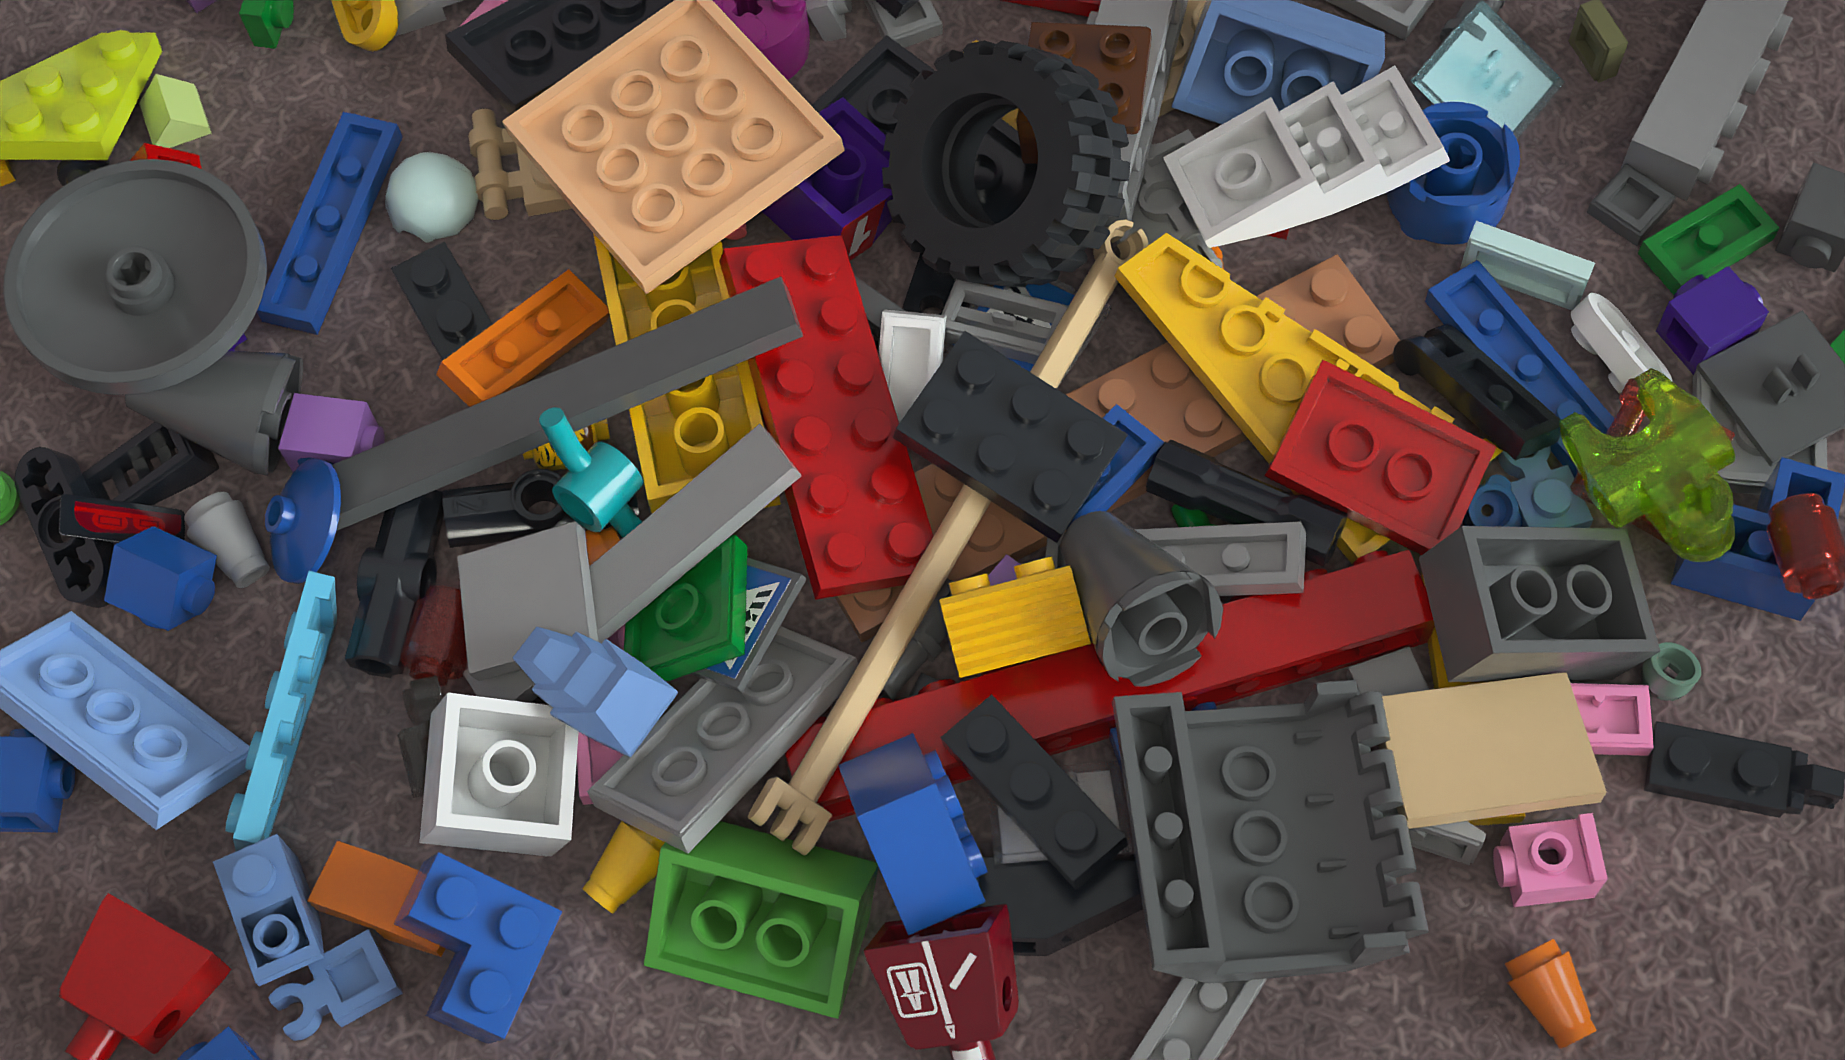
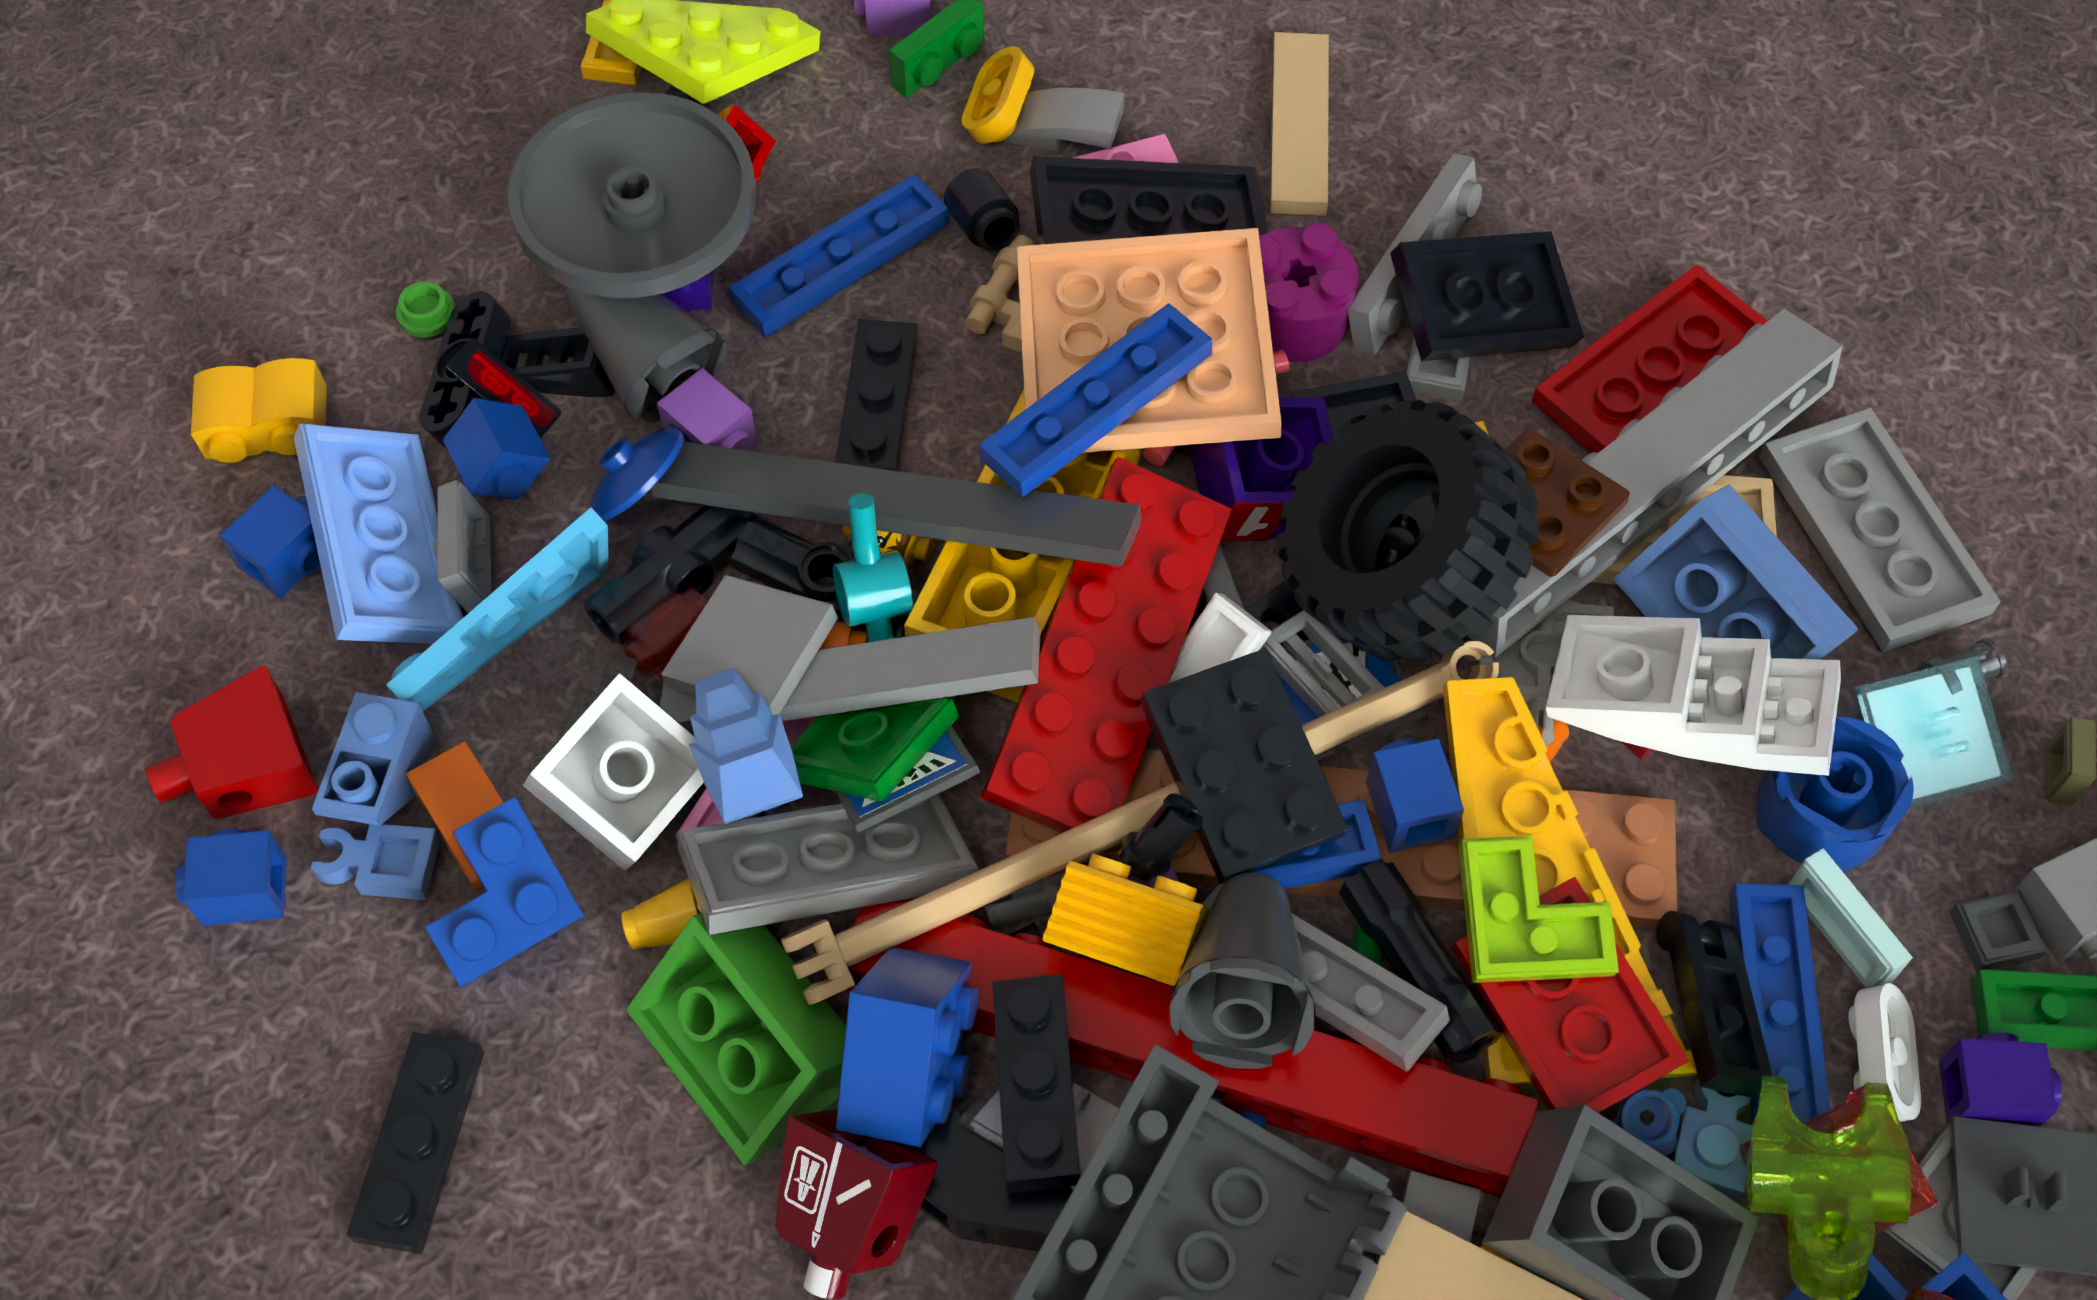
camera: 30 degrees right, 5 degrees down
(173, 112) = (789, 101): yellowish green slope -> none
(199, 680) = (463, 545): none -> light grey plate
(226, 531) = (574, 447): light grey cone -> none
(428, 107) = (982, 209): none -> black brick
(431, 196) = (934, 281): light aqua hair -> none
(524, 340) = (909, 437): orange plate -> none
(677, 211) = (1095, 400): none -> blue plate
(989, 536) = (1160, 838): none -> black pin
(1152, 374) = (1414, 794): none -> blue brick
(1310, 432) = (1514, 934): none -> lime tile

